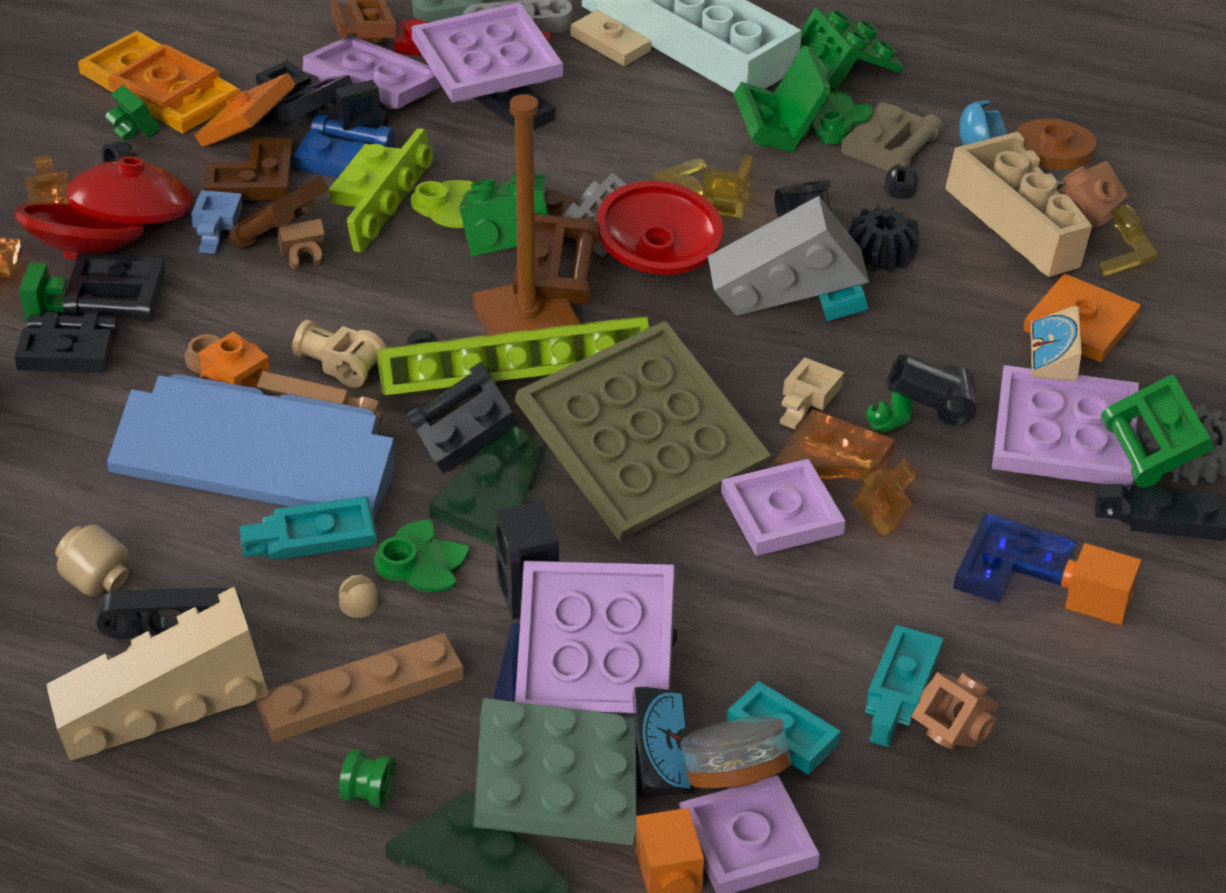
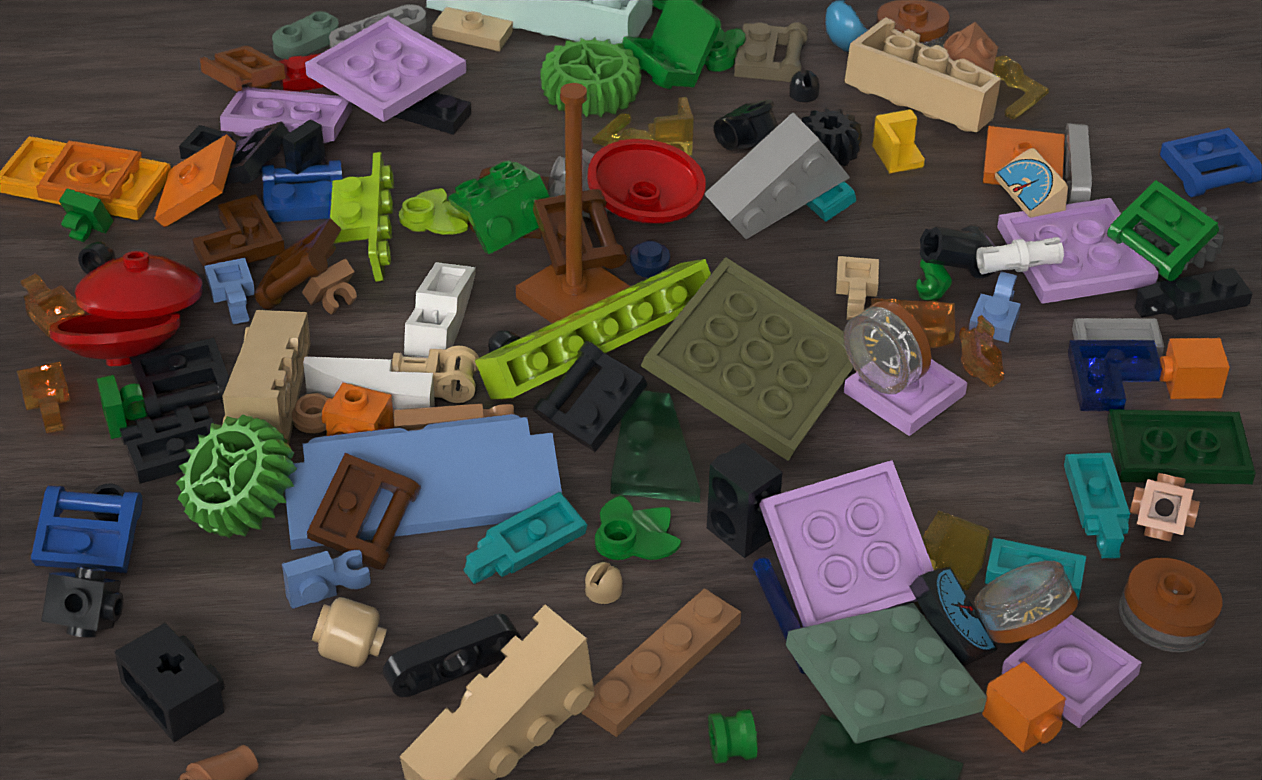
camera: 25 degrees left, 0 degrees up
(85, 386) = (239, 464): none -> bright green gear
(104, 504) = (317, 576): none -> medium blue plate
(160, 317) = (269, 369): none -> tan wedge
(168, 444) = (350, 504): none -> reddish brown plate
(276, 339) = (407, 389): none -> white slope
(385, 292) = (438, 309): none -> white slope
(621, 303) = (649, 258): none -> dark blue plate
(686, 114) = (603, 68): none -> bright green gear
(709, 678) = (956, 545): none -> clear yellow panel
(764, 457) = (887, 347): none -> clear piece
(895, 809) = (1170, 604): none -> dark orange piece
(943, 463) = (999, 308): none -> medium blue plate
(955, 262) = (895, 141): none -> yellow panel
(987, 411) = (1020, 255): none -> white pin
(1035, 659) = (1182, 444): none -> dark green tile
(1054, 521) = (1118, 330): none -> light grey tile
(1131, 338) = (1077, 163): none -> light grey beam

